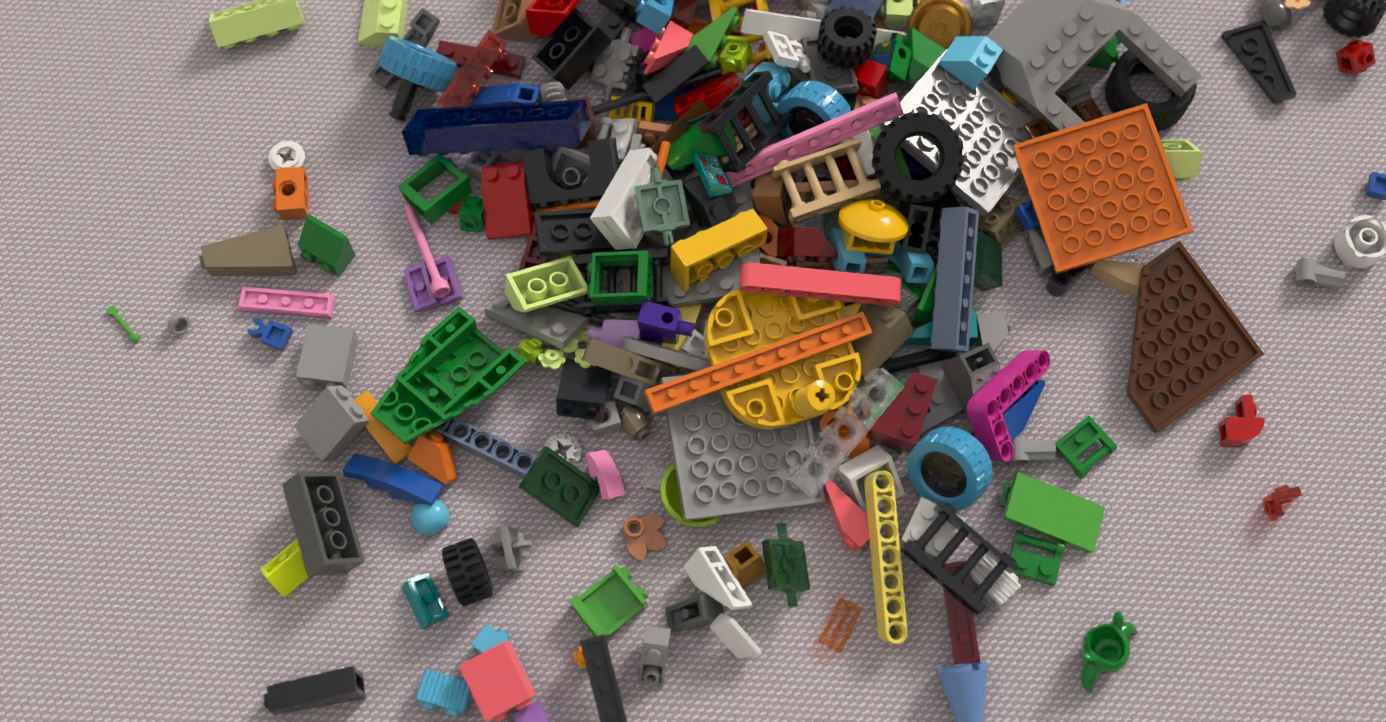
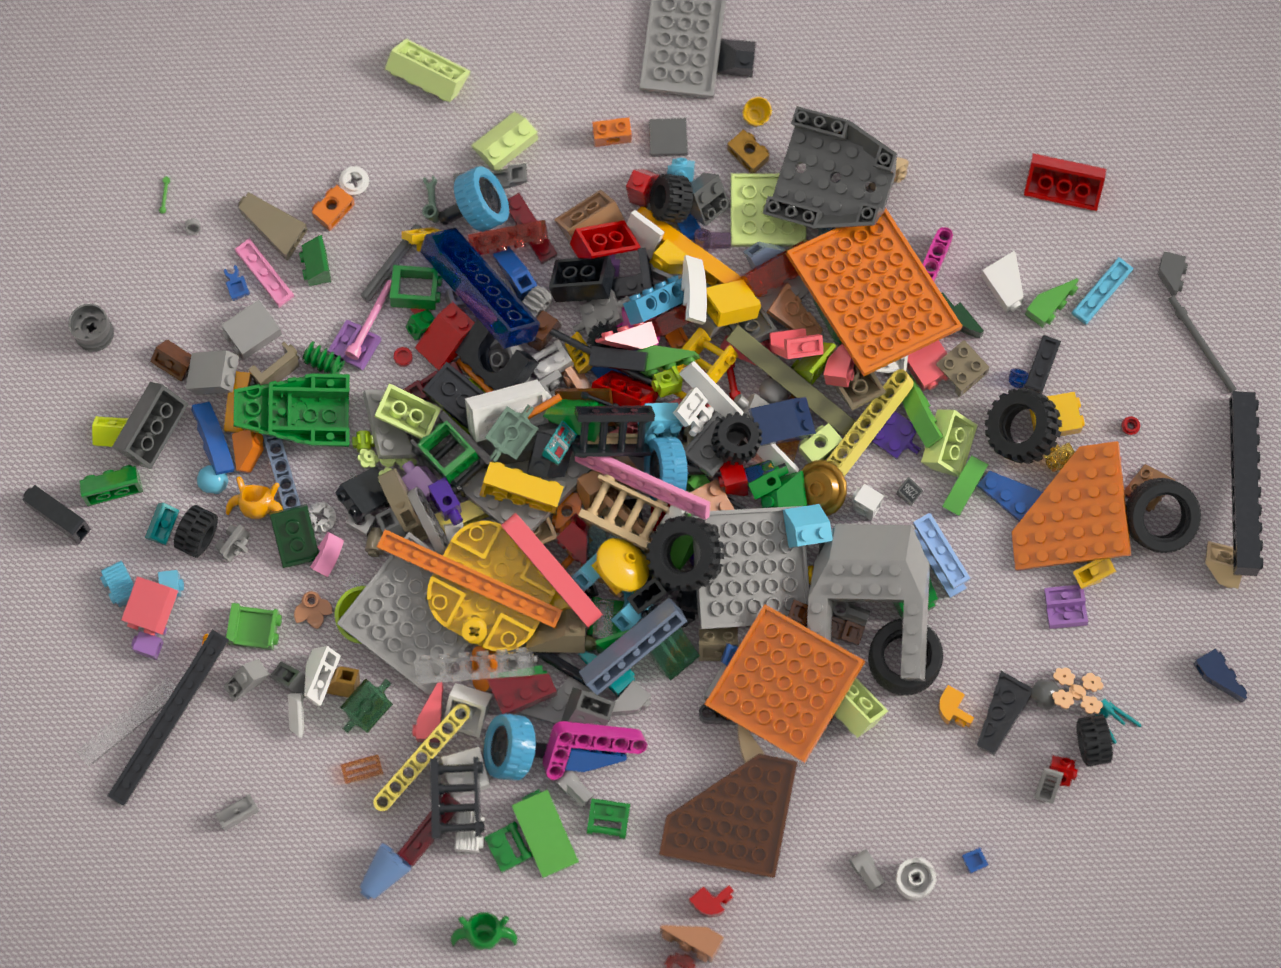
camera: 50 degrees right, 5 degrees up
(161, 490) = (87, 319): none -> dark grey wheel
(281, 451) = (172, 359): none -> reddish brown panel
(341, 613) = (110, 485): none -> green slope
(381, 116) = (430, 210): none -> sand green brick
(389, 343) = (279, 369): none -> dark tan panel
(392, 190) = (387, 268): none -> dark grey axle
(395, 147) = (417, 236): none -> yellow slope
(418, 320) = (322, 360): none -> green piece
(486, 254) = (403, 356): none -> red tile
(490, 493) = (254, 500): none -> light orange piece
(1222, 94) = (949, 708): none -> light orange brick
(1280, 463) = (694, 938): none -> nougat slope
(1364, 79) = (1046, 794): none -> light grey slope

